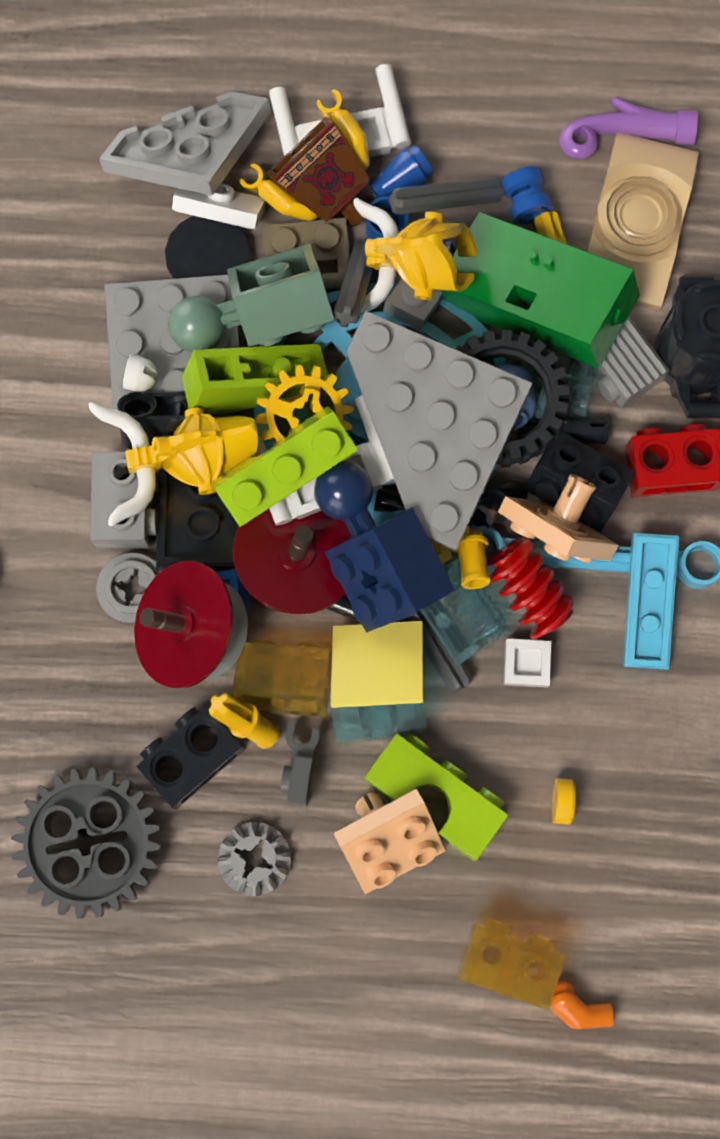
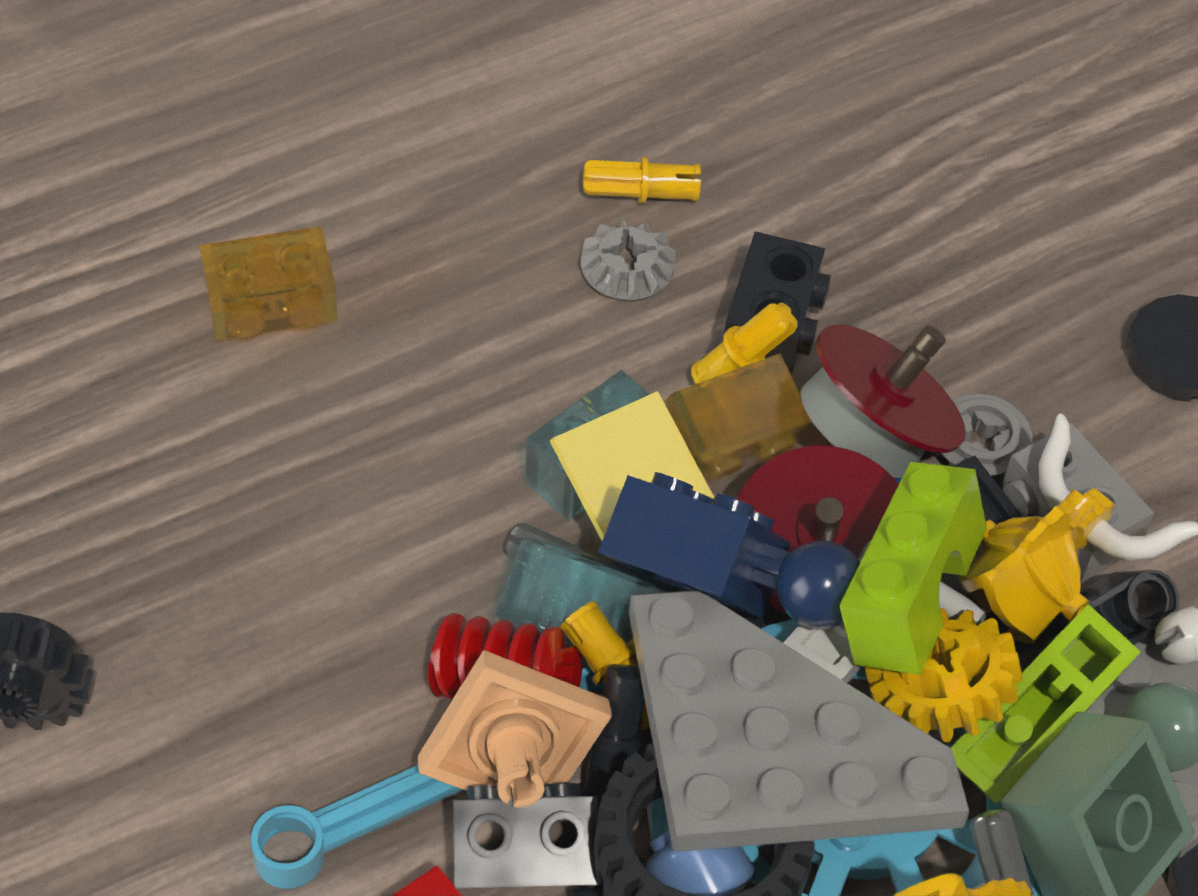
camera: 145 degrees right, 25 degrees down
(94, 883) = (817, 179): dark grey gear -> none
(202, 917) = (642, 180): none -> yellow axle
(297, 777) = (638, 346): dark grey plate -> none
(389, 839) = (491, 324): light nougat plate -> none
(471, 814) = (416, 411): lime arch -> none
(527, 663) = (447, 591): white plate -> none
(563, 801) = (306, 475): yellow tile -> none
(576, 1012) = (156, 293): orange arm -> none
(650, 601) = (333, 754): medium azure tile -> none

